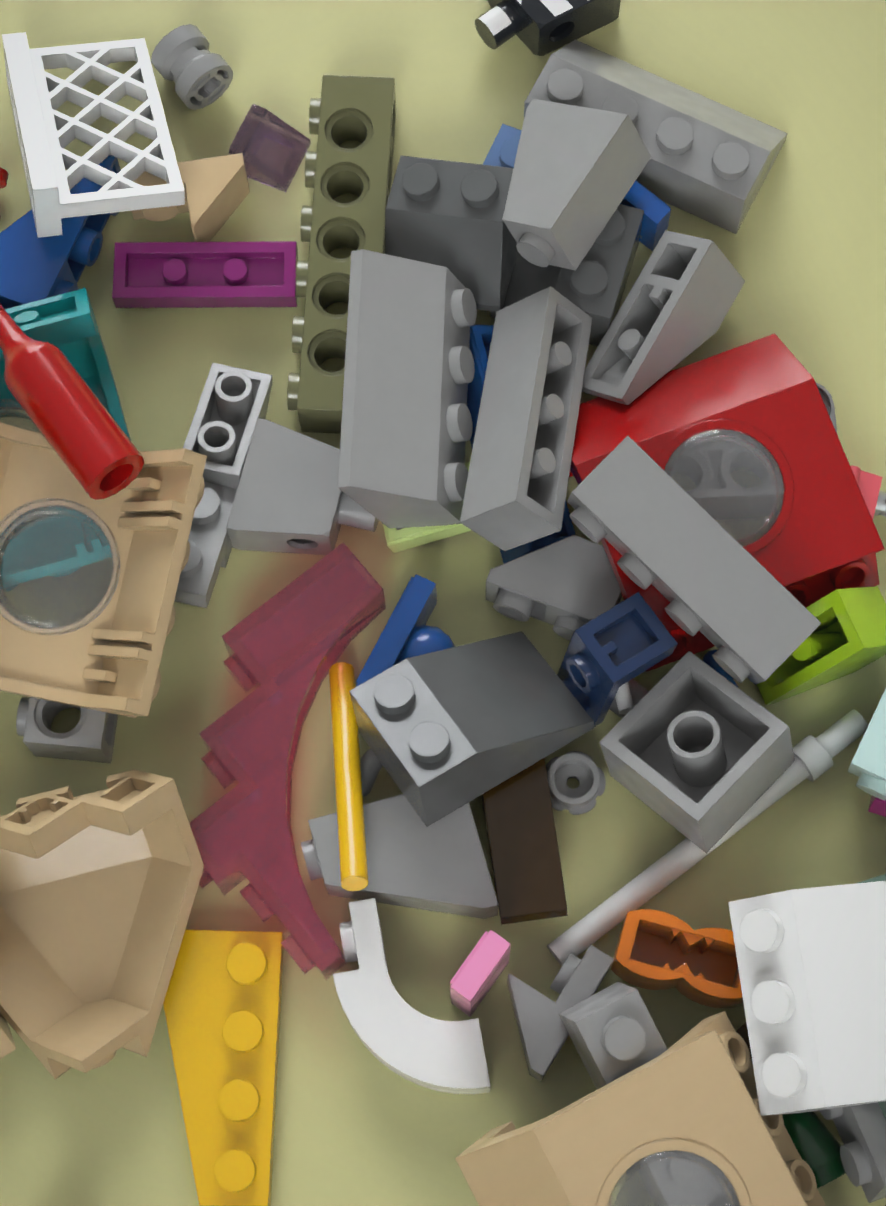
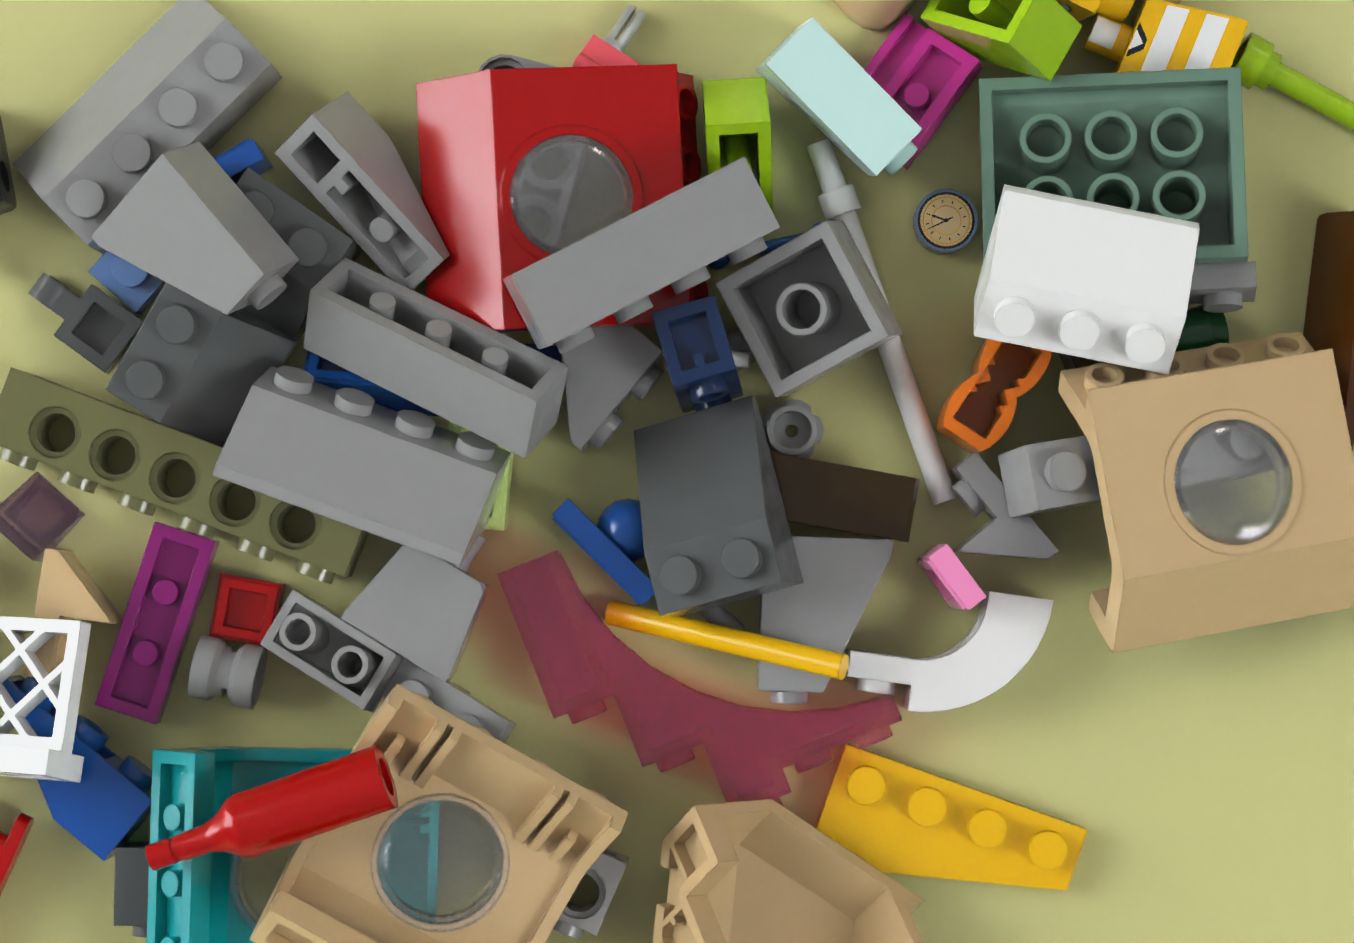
camera: 70 degrees left, 15 degrees up
(178, 344) = (221, 671): none -> light grey wheel
(243, 343) = (245, 608): none -> red tile
(460, 134) = (92, 324): none -> dark grey plate
(830, 861) = (945, 221): none -> tile

